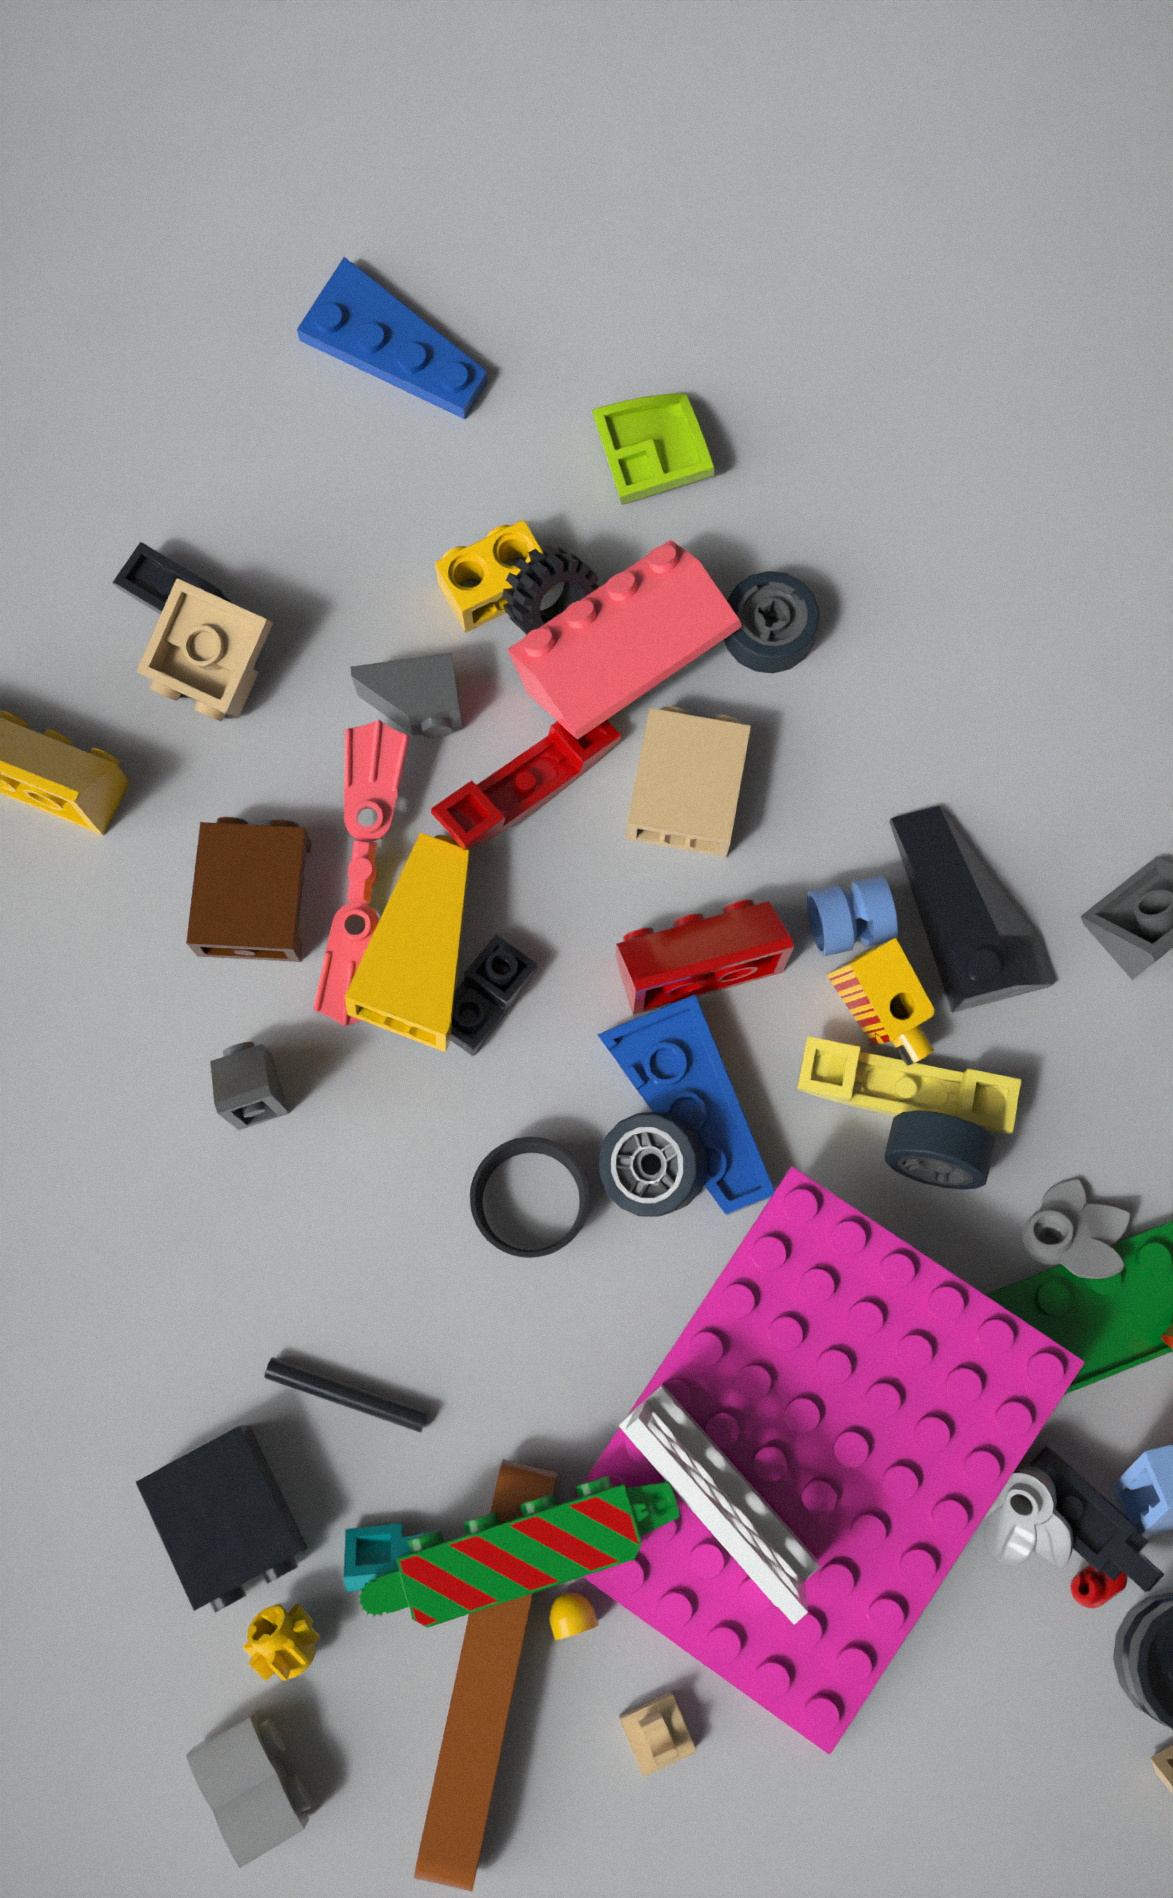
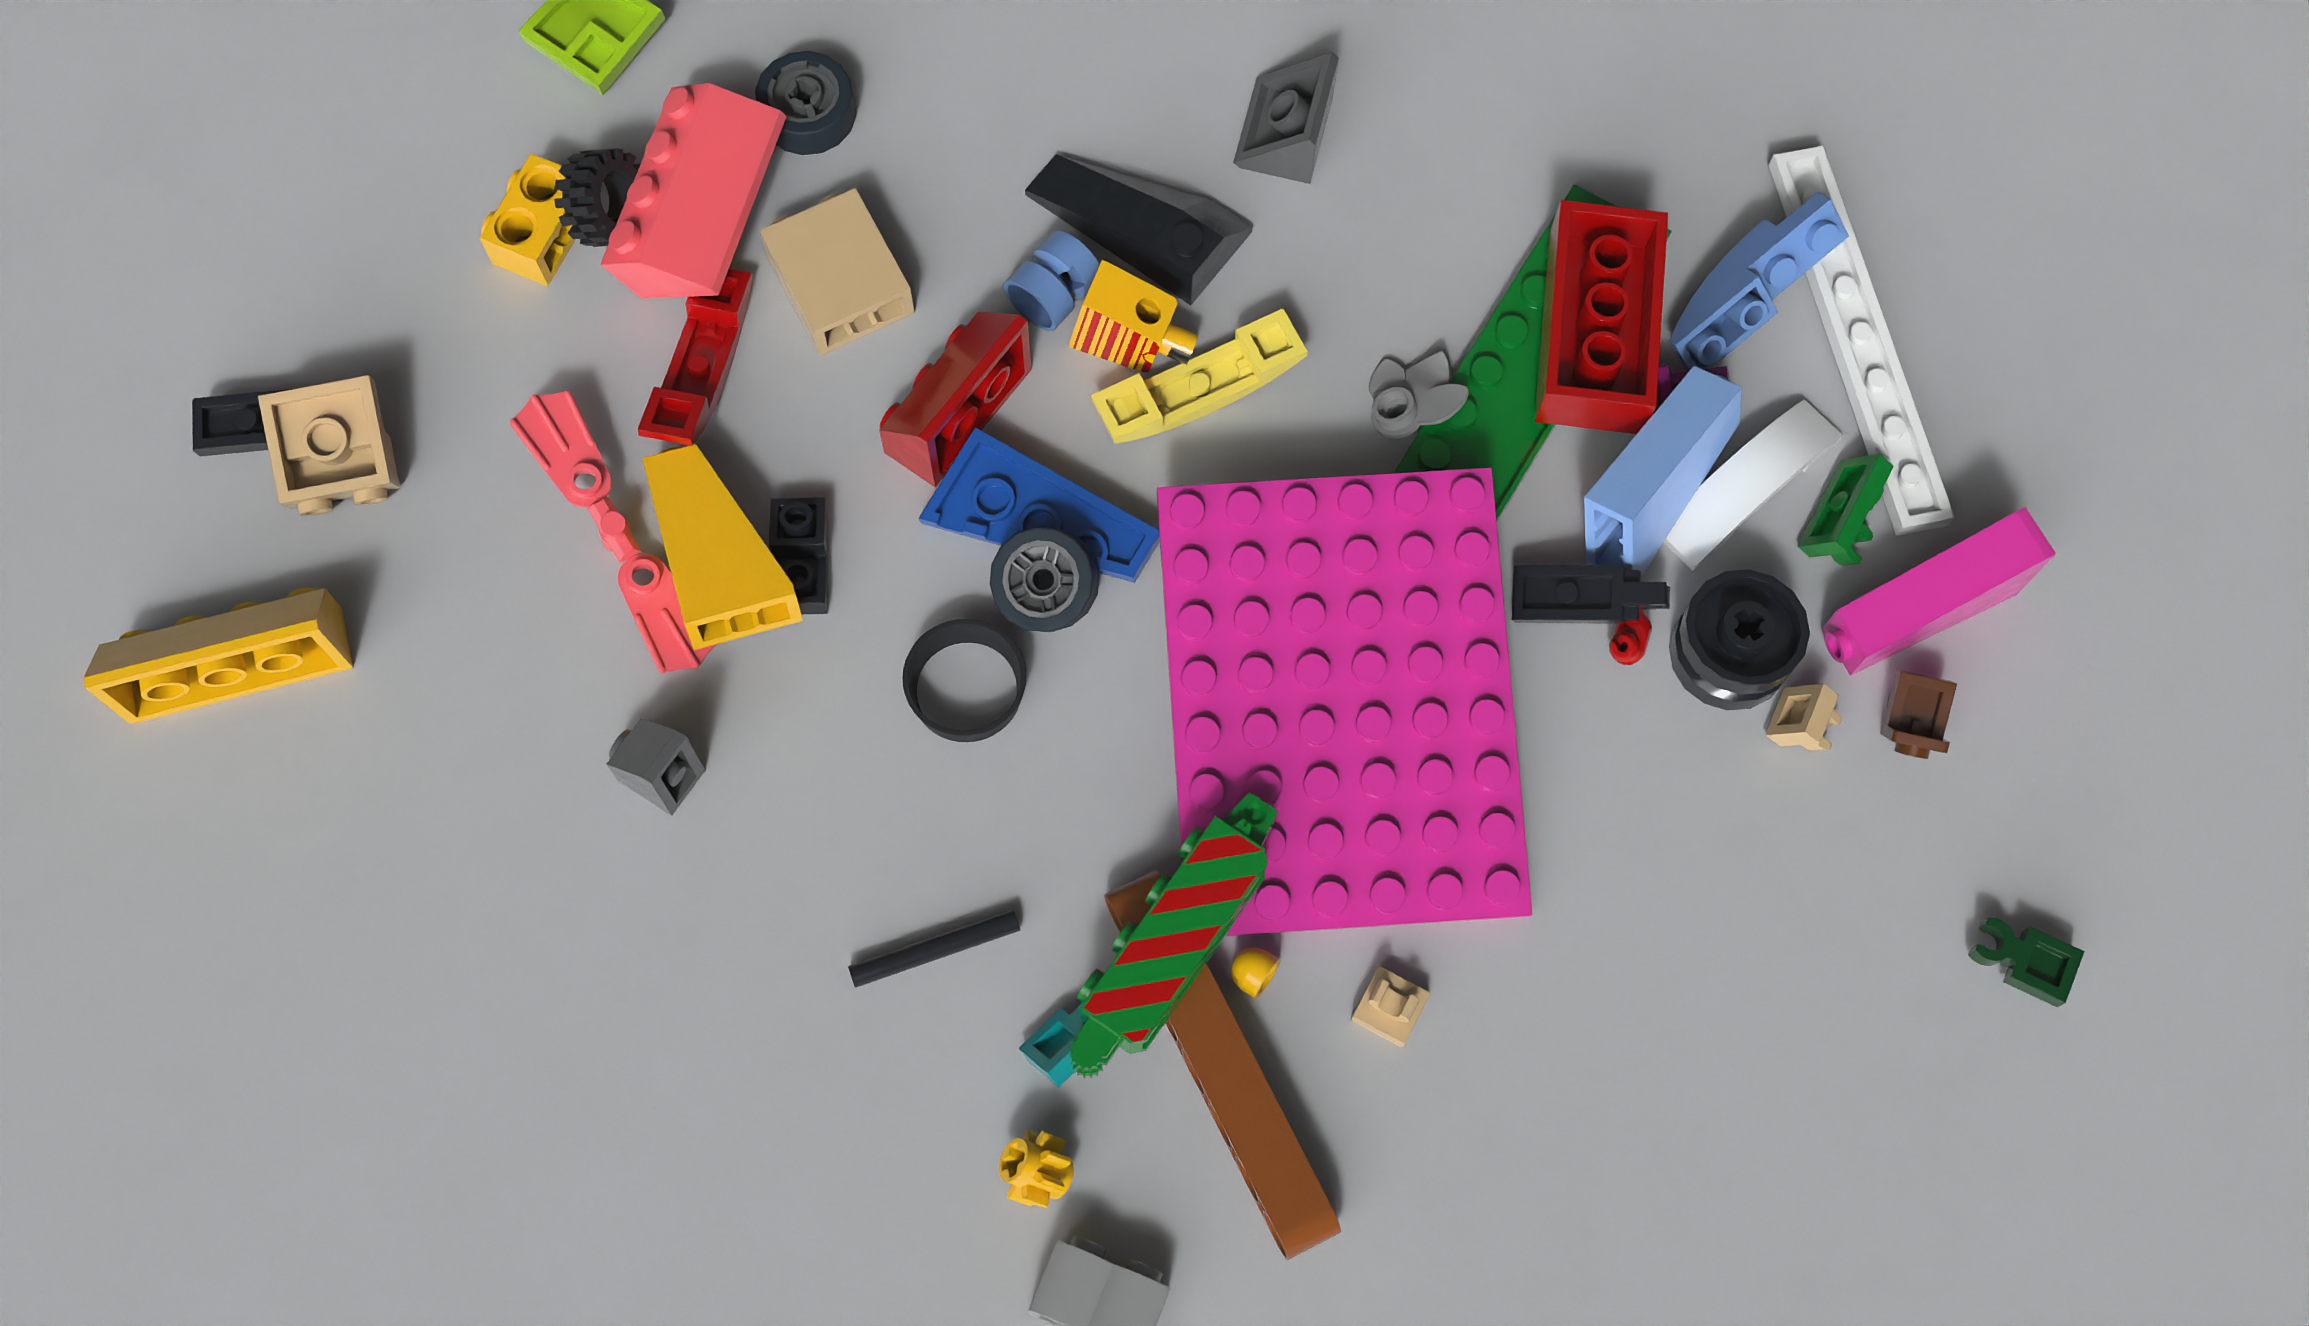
camera: 40 degrees left, 5 degrees down
(222, 1519) = (909, 1114): black brick -> none
(248, 890) = (528, 613): reddish brown panel -> none
(384, 338) = (280, 94): blue wing -> none
(413, 693) = (542, 358): dark grey slope -> none
(723, 1500) = (1298, 777): white fence -> none
(939, 1150) = (1262, 404): black wheel -> none
(1026, 1525) = (1540, 637): light grey plate -> none

